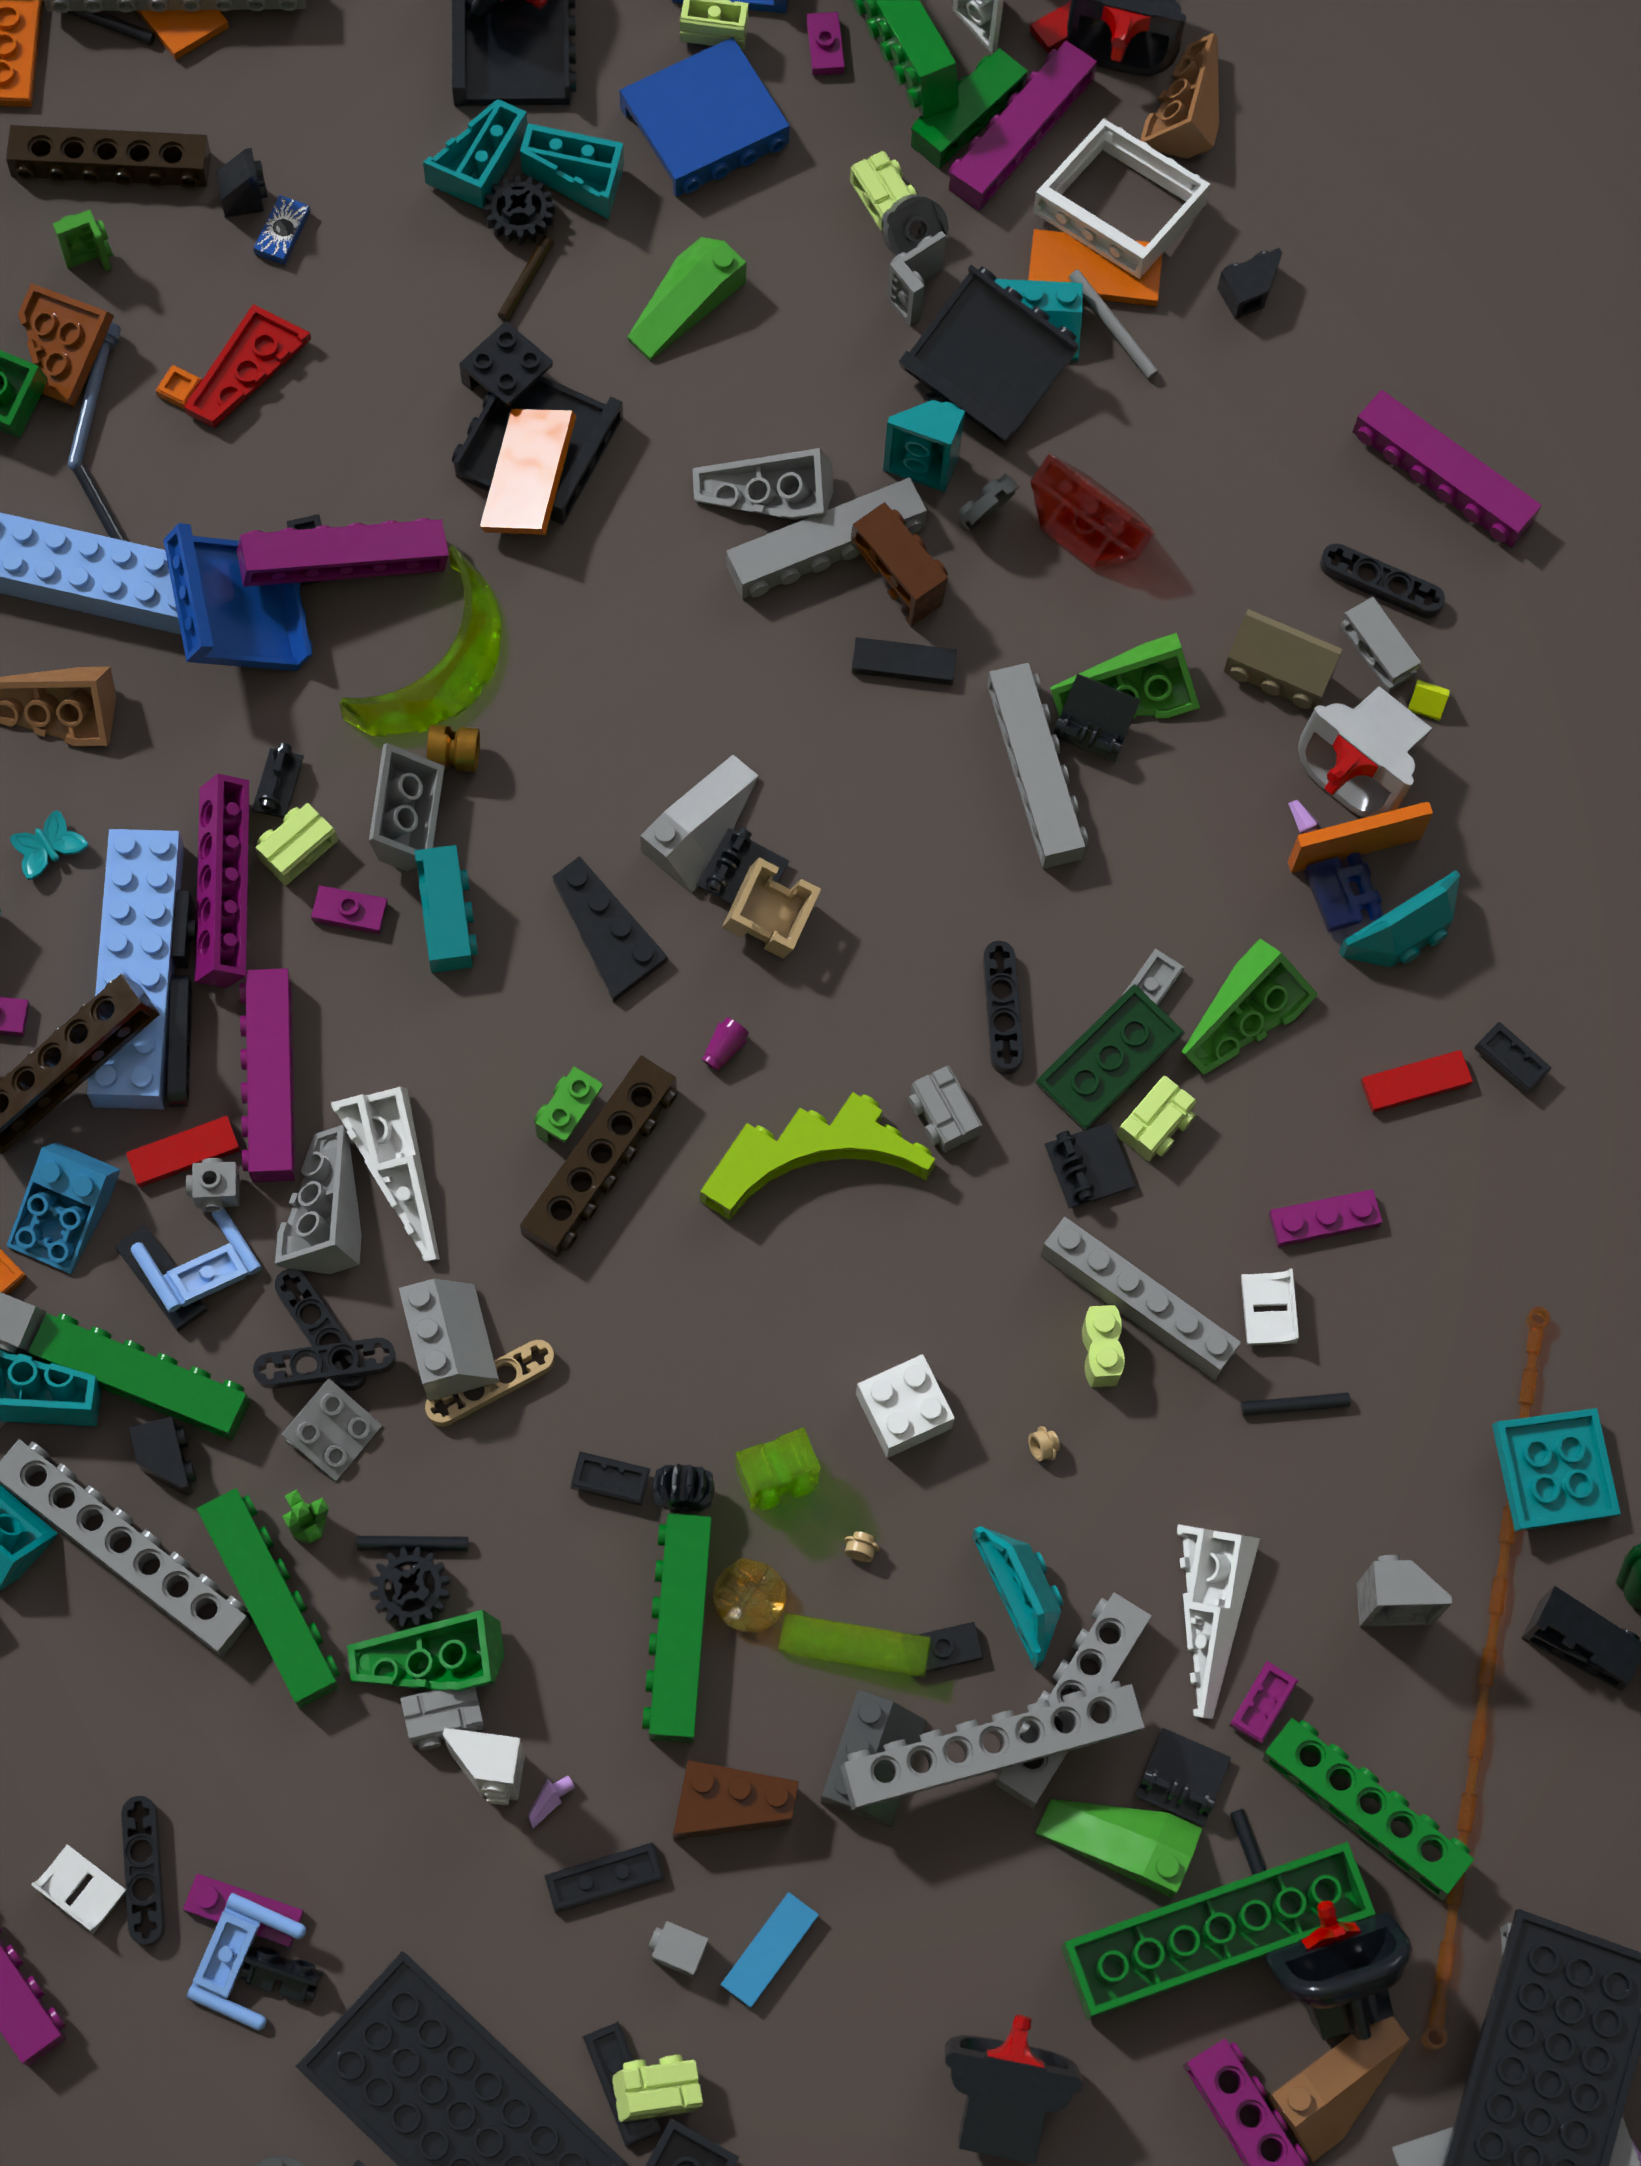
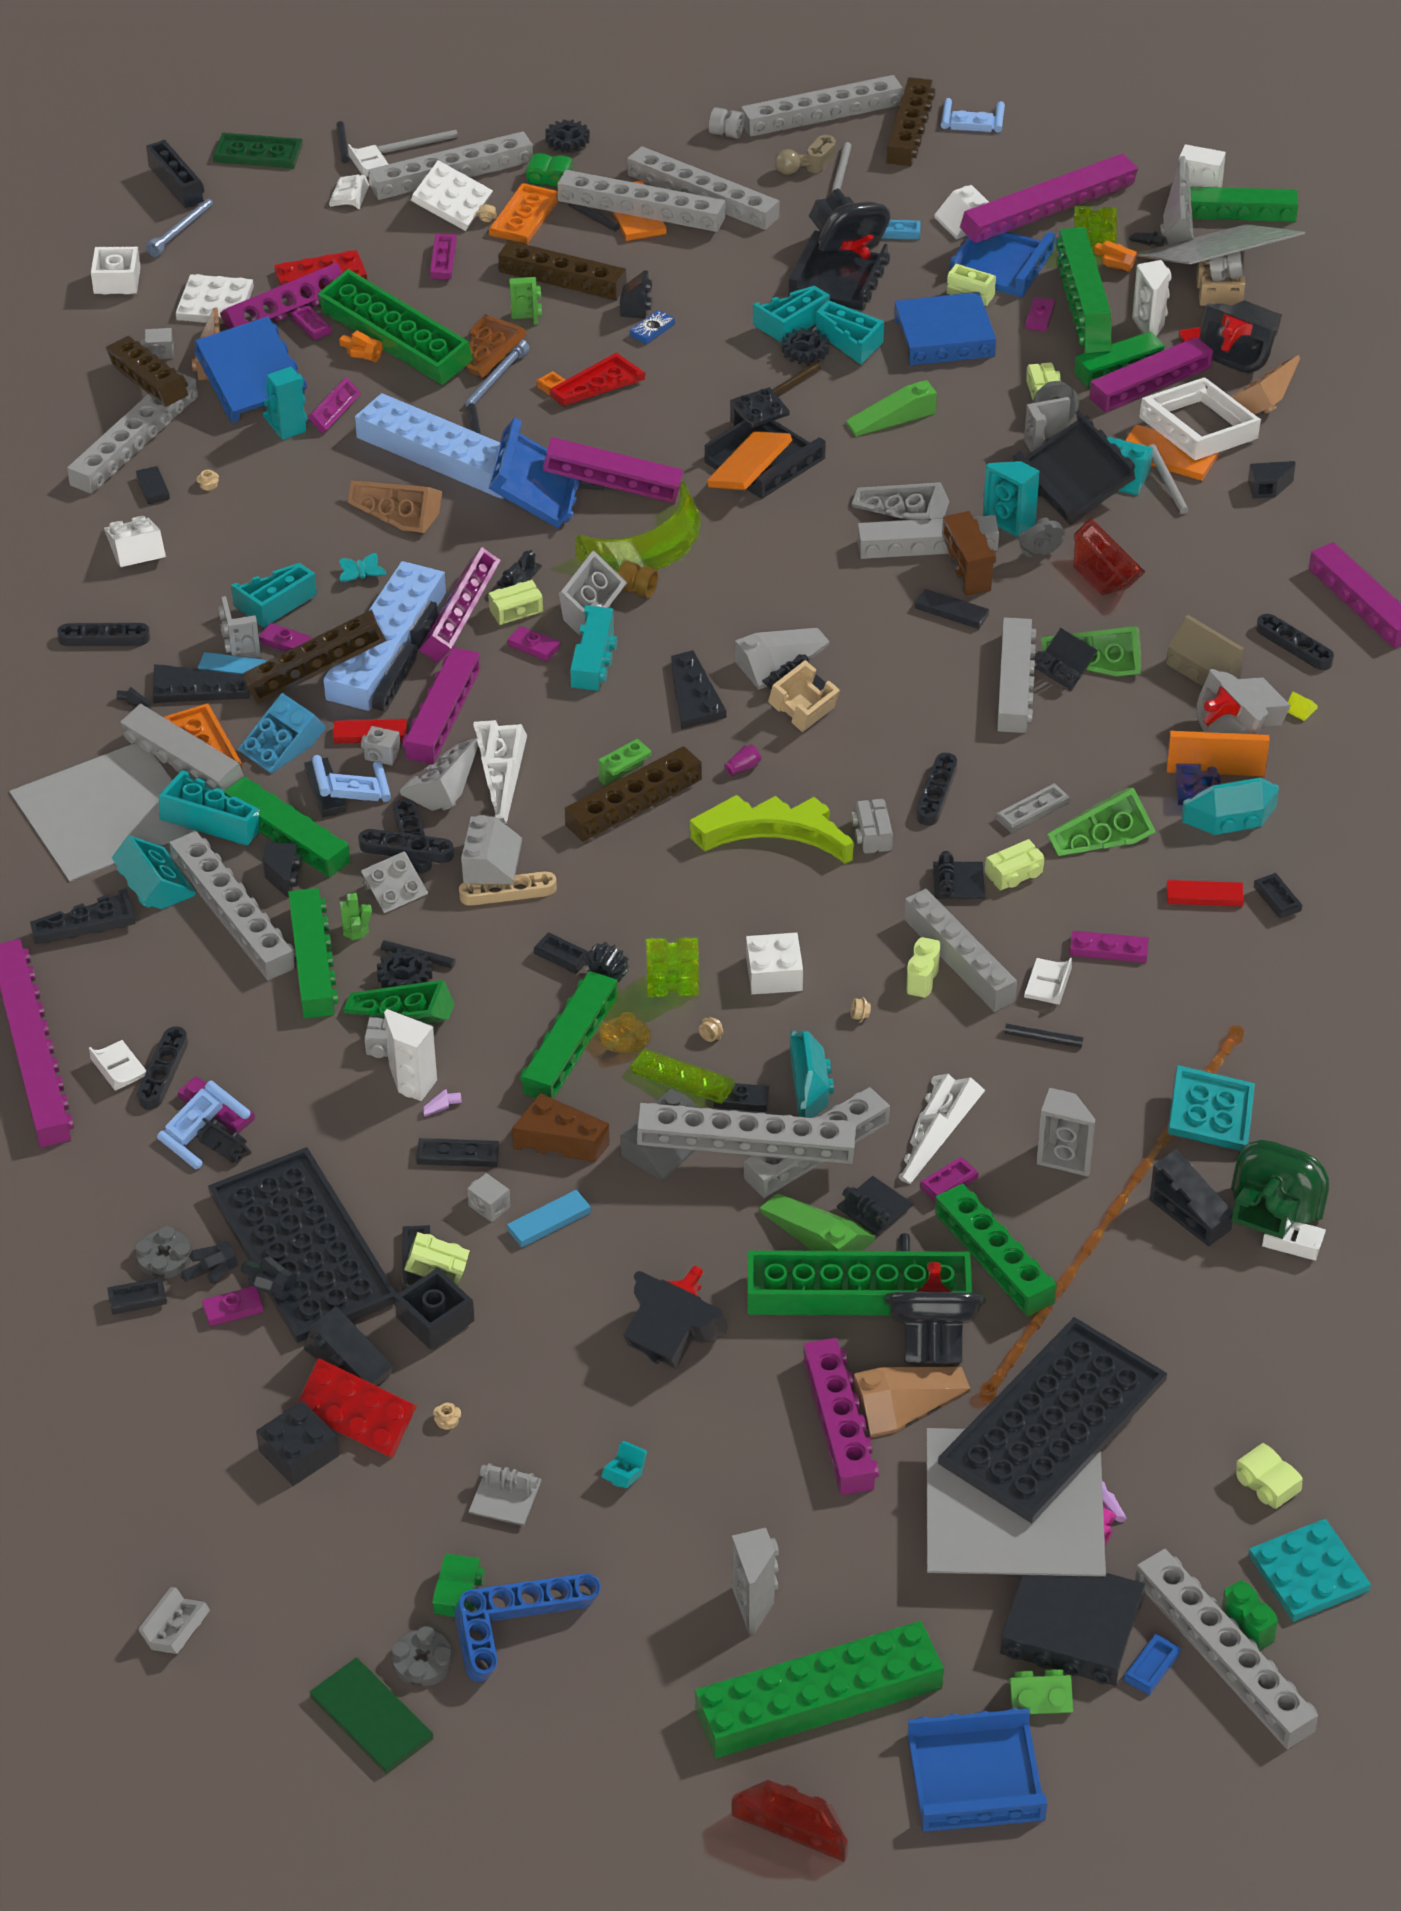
camera: 25 degrees right, 25 degrees down
(1109, 1057) = (997, 827): dark green tile -> none
(1380, 644) = (1278, 667): light grey piece -> none

